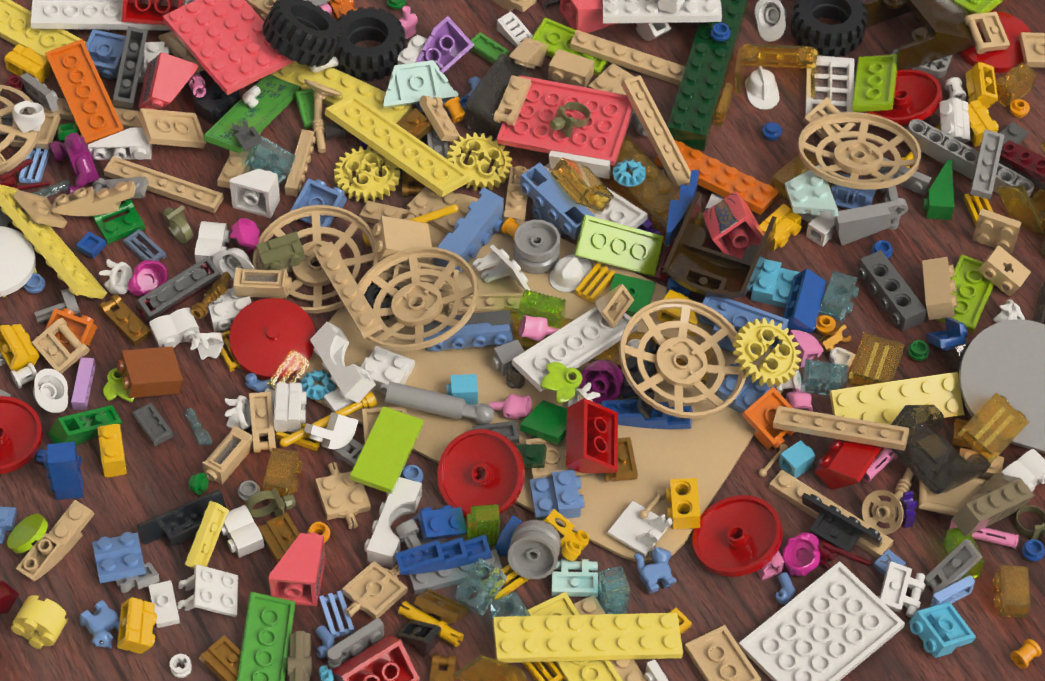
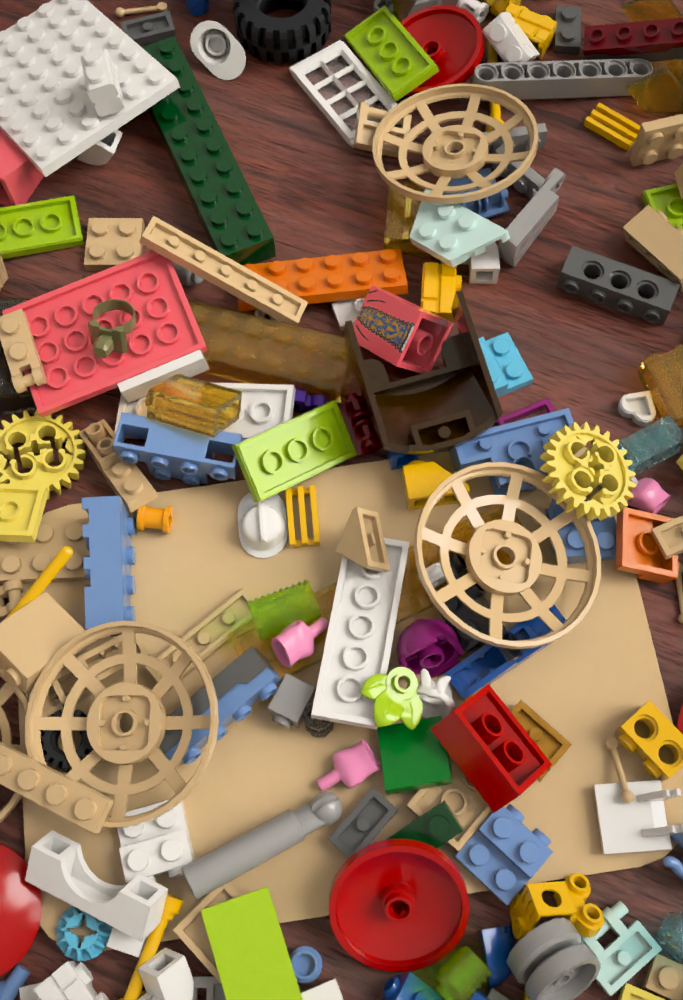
camera: 35 degrees left, 15 degrees up
(271, 383) = (19, 946): clear yellow tile -> none
(464, 387) = (273, 792): medium azure brick -> none
(504, 268) = (180, 583): white plate -> none
(536, 246) = (201, 522): light grey wheel -> none
(570, 69) = (49, 259): tan brick -> none
(624, 177) = (234, 358): medium azure gear -> none
(627, 57) = (100, 200): tan plate -> none
(639, 289) = (351, 491): green plate -> none
(679, 209) = (332, 355): blue slope -> none
(720, 32) = (186, 100): blue plate -> none
(724, 104) = (254, 183): clear yellow tile -> none
(762, 89) = (275, 139): white piece -> none
(771, 131) = (329, 182): blue plate -> none
(777, 57) = (271, 86): clear yellow windscreen -> none
(804, 301) = (548, 368): blue brick -> none
(807, 345) = (595, 415): bright pink brick -> none
(821, 326) = (583, 384): light orange plate -> none
(830, 339) = (611, 395): pearl gold plate -> none
(838, 296) = (572, 332): clear light blue brick -> none
(884, 246) = (562, 242): blue plate -> none
(940, 196) = (566, 137): green slope -> none
(987, 164) = (594, 69): light grey plate -> none

